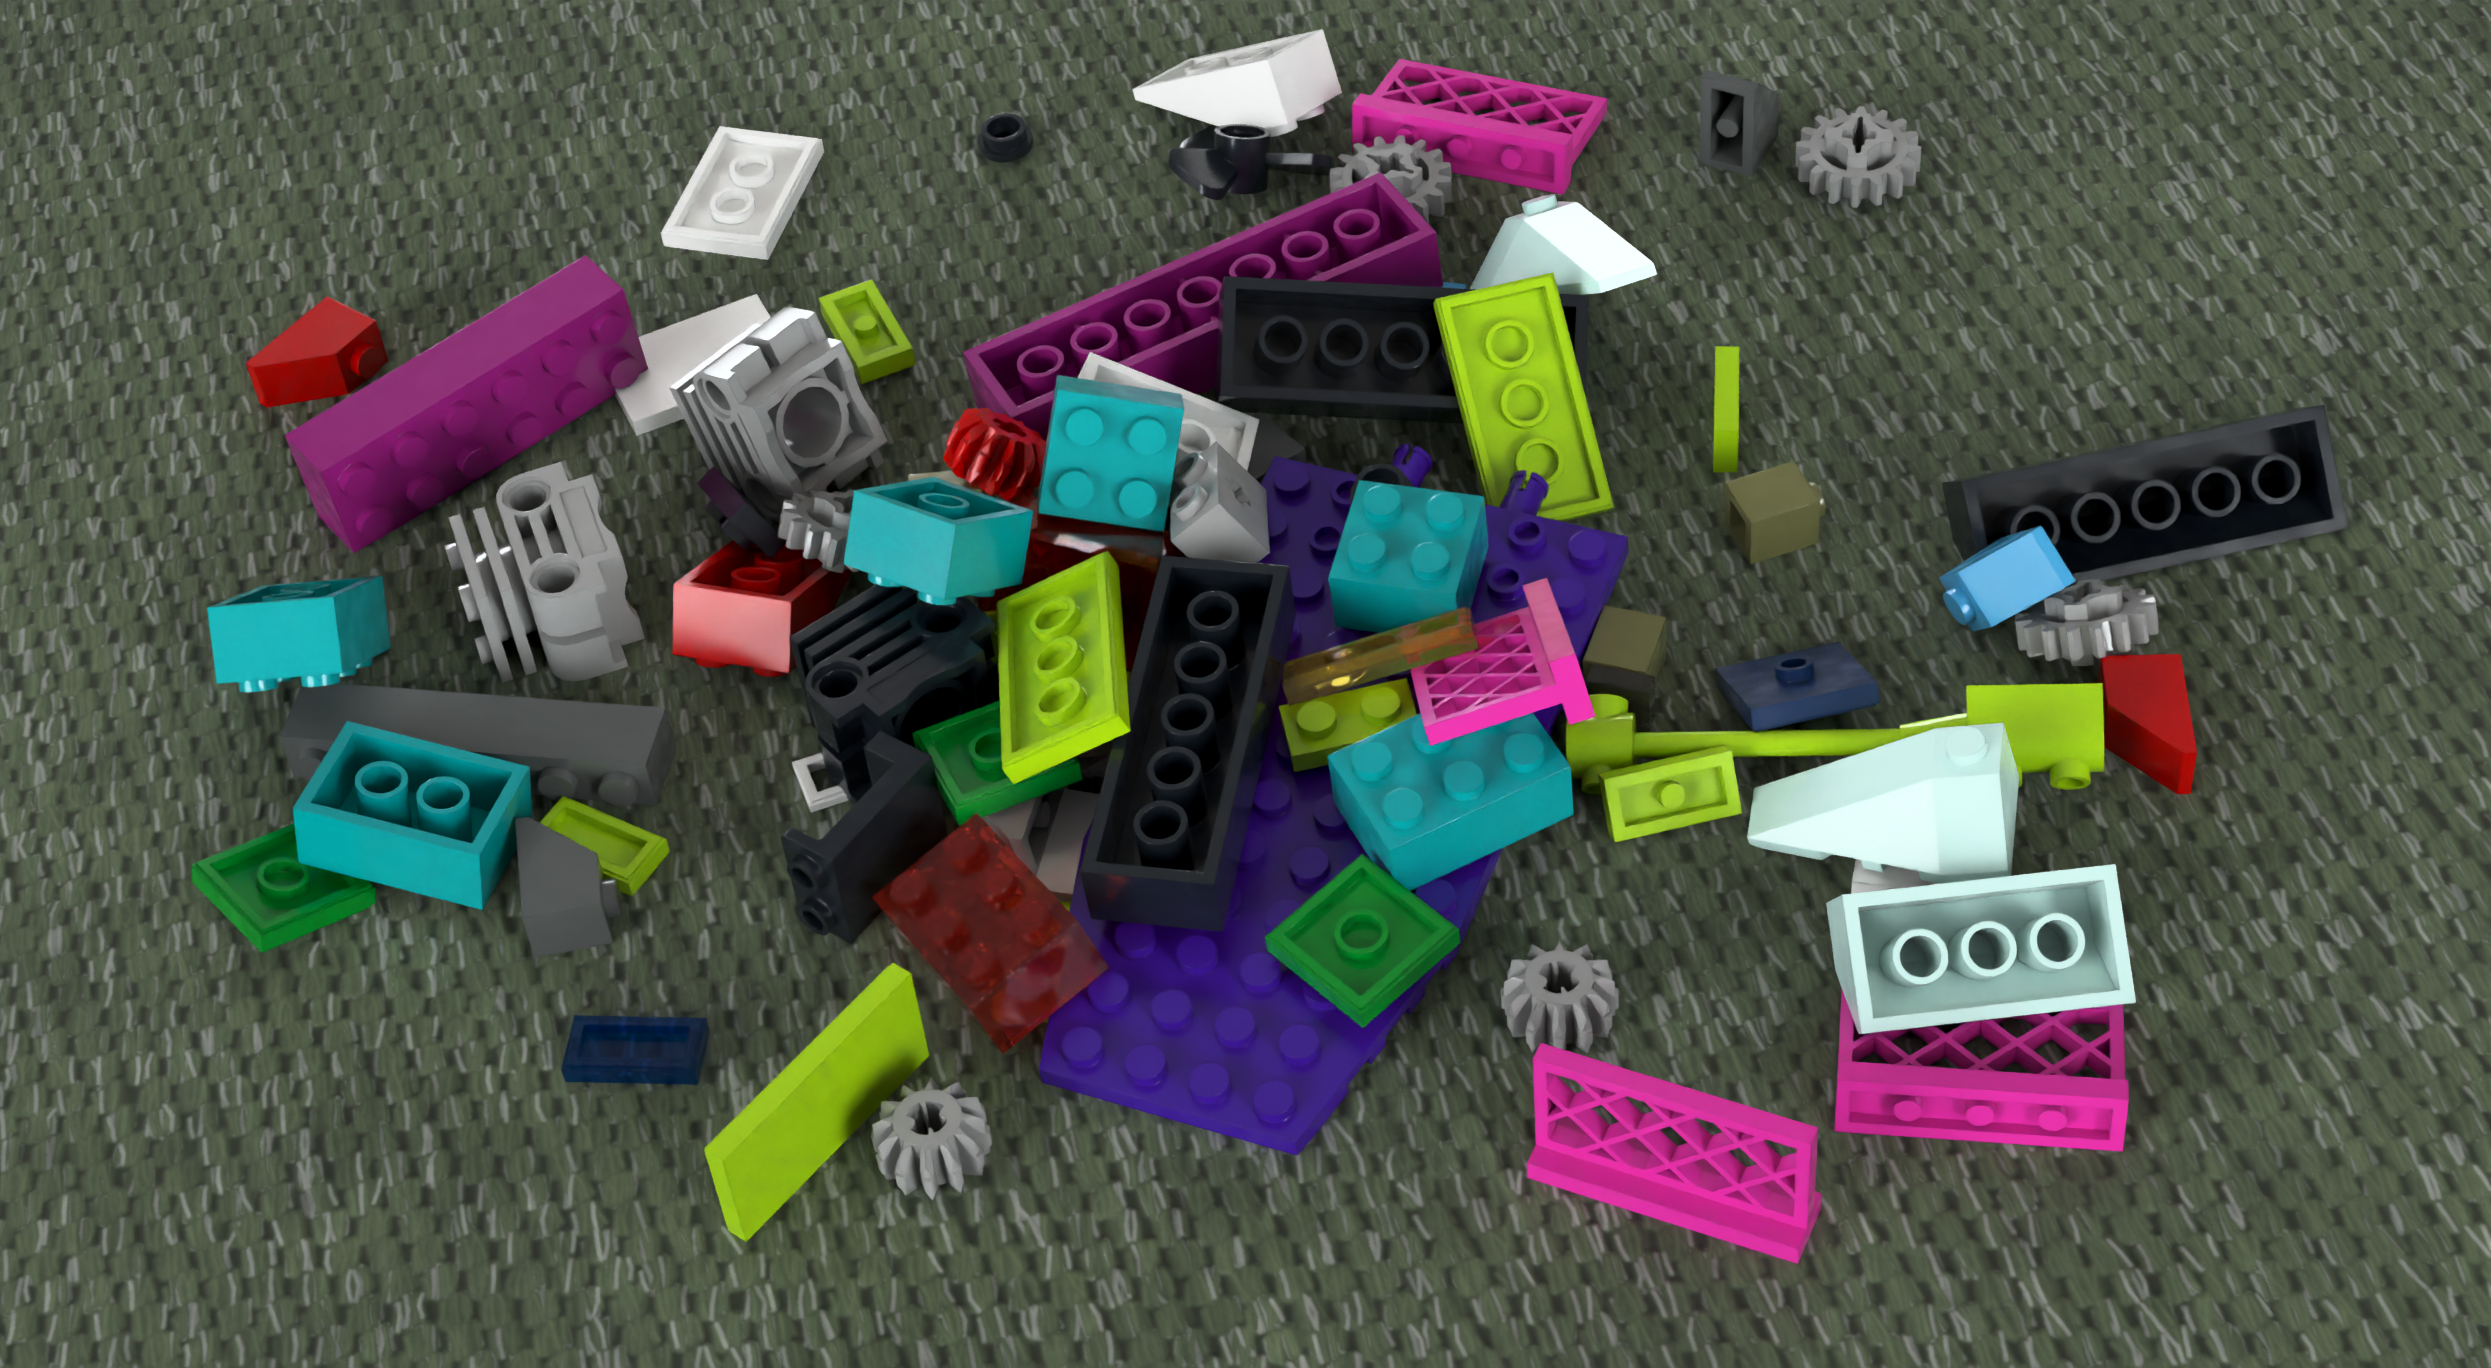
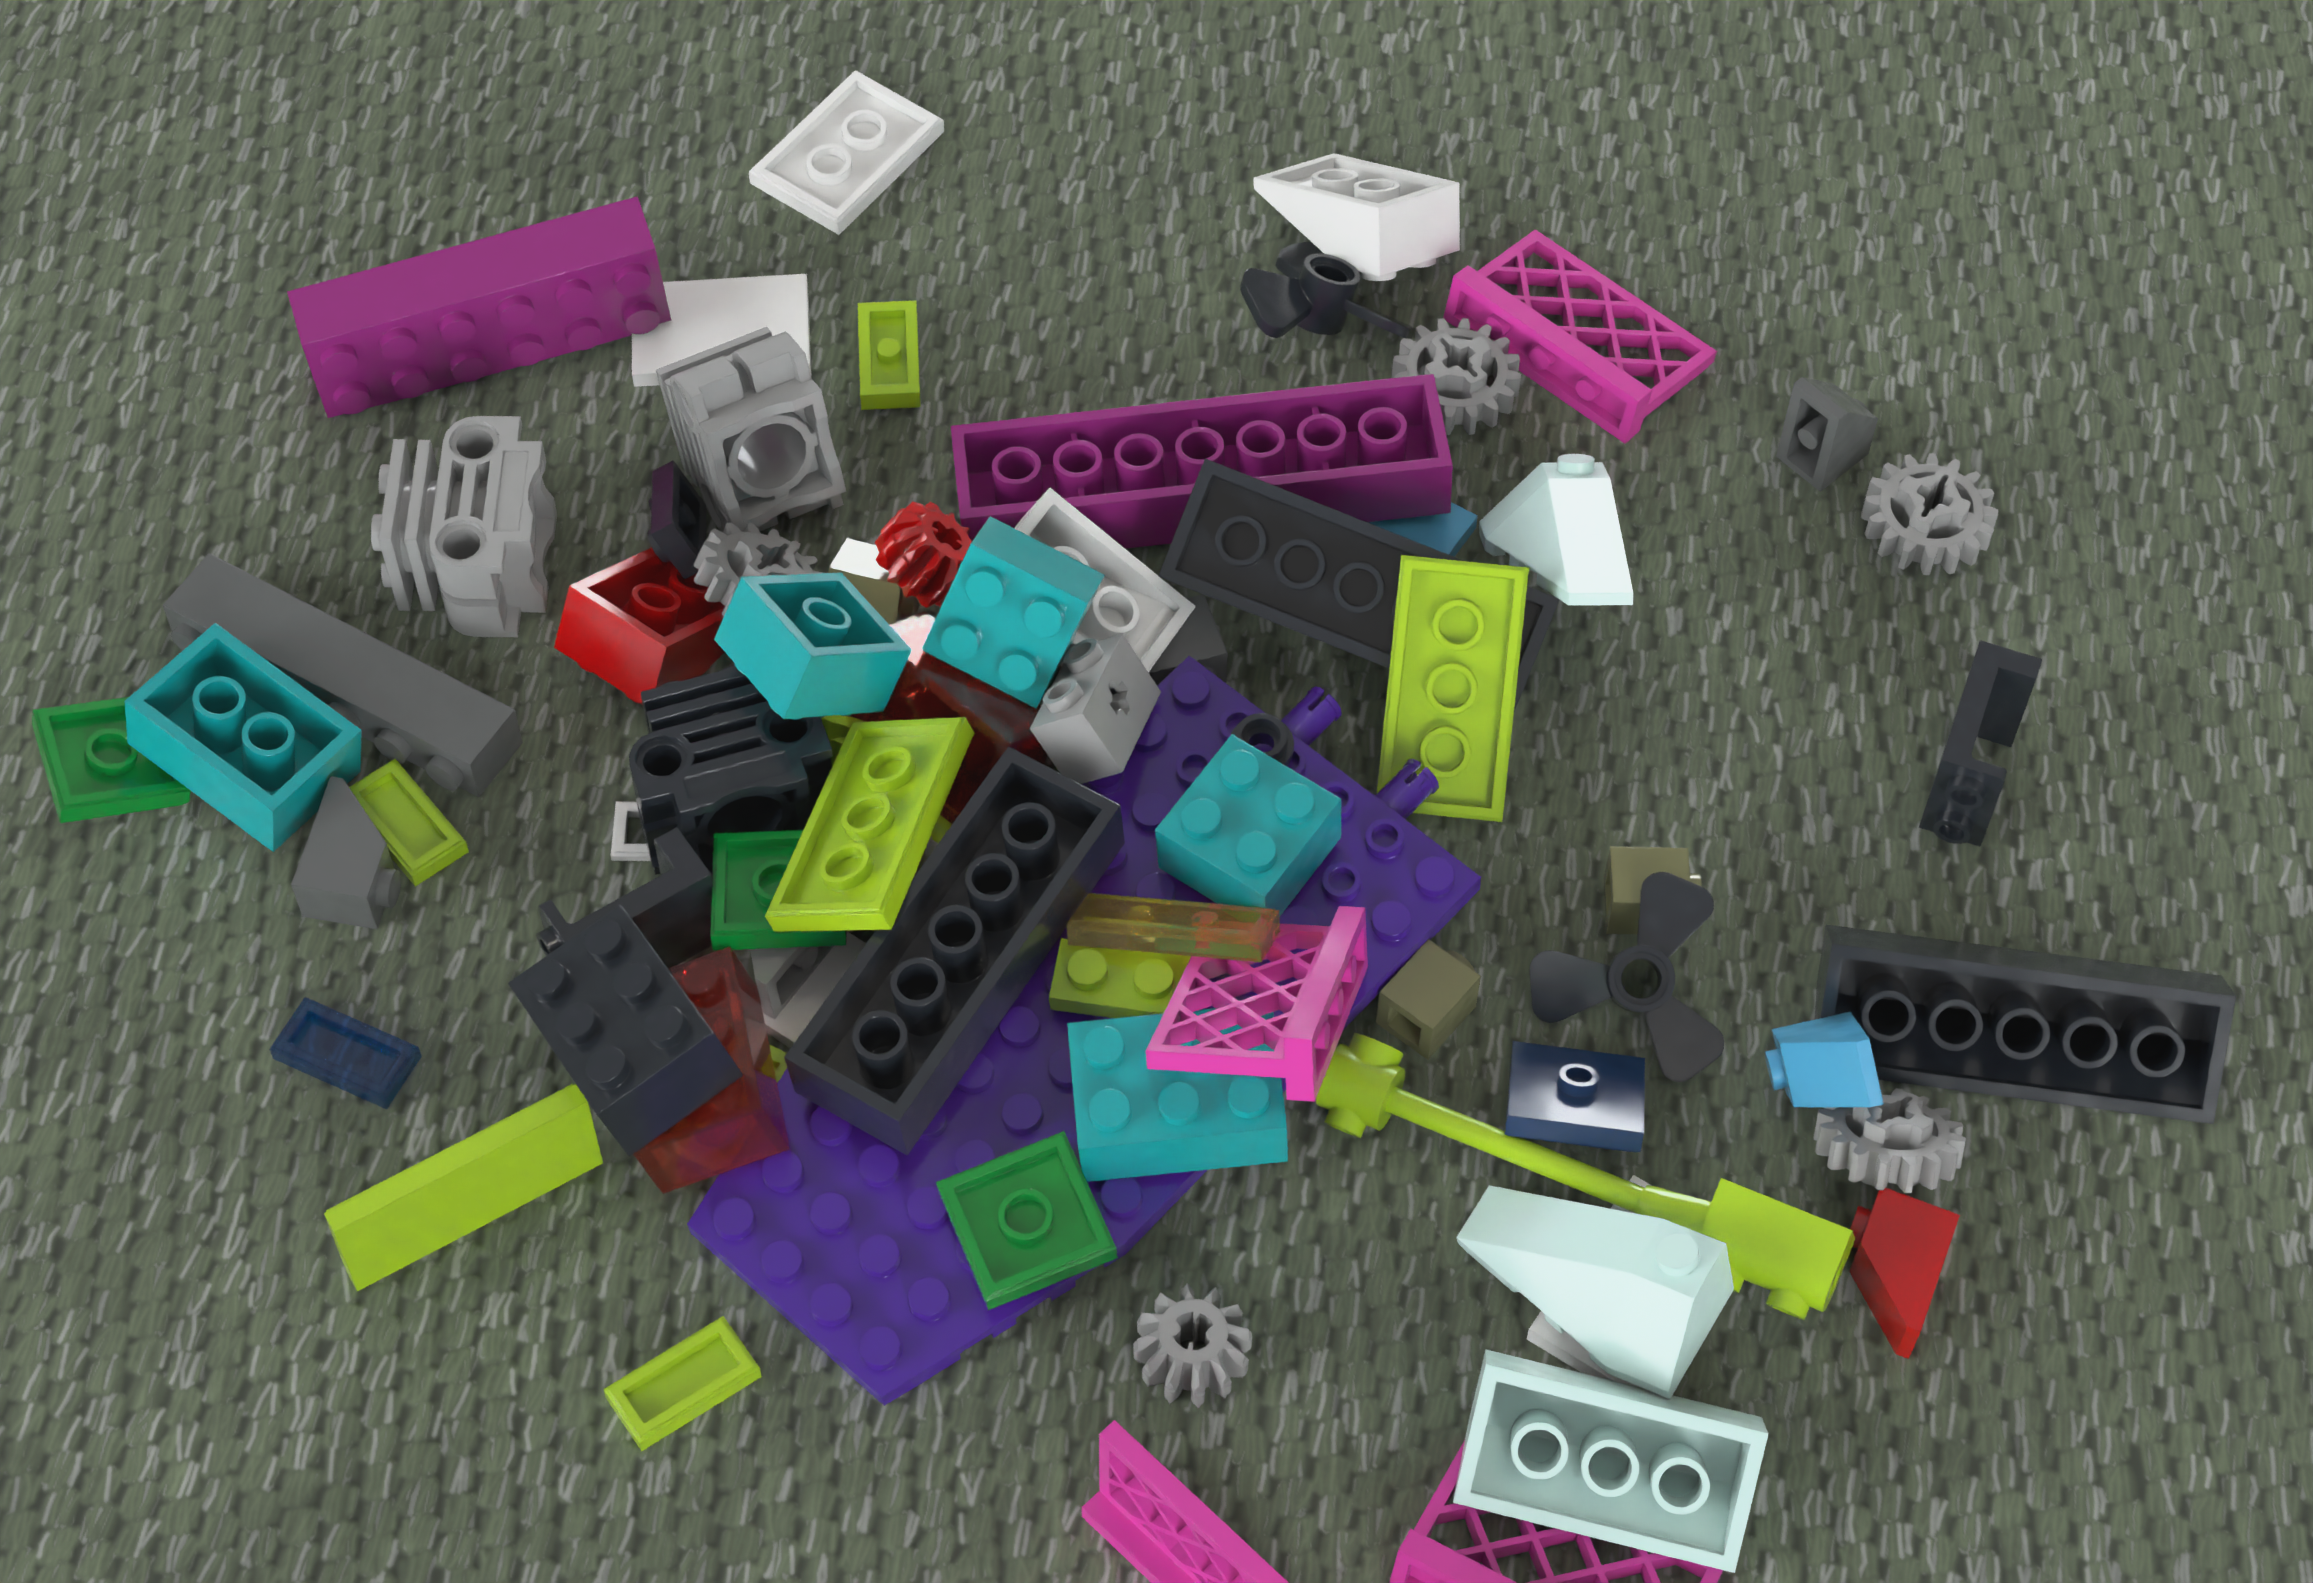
camera: 15 degrees right, 10 degrees up
(299, 631) = (219, 503): teal brick -> none
(318, 356) = (378, 195): red slope -> none
(920, 899) = (625, 1030): none -> black brick
(931, 1138) = (563, 1281): light grey gear -> none
(1004, 138) = (1115, 171): black plate -> none
(1099, 1202) = (682, 1383): none -> lime tile
(1634, 687) = (1408, 1036): clear smoke tile -> none
(1670, 793) = (1400, 1165): lime plate -> none
(1726, 409) = (1659, 756): lime tile -> none
(1746, 601) = (1667, 917): none -> black piece
(1997, 322) = (1989, 709): none -> black panel

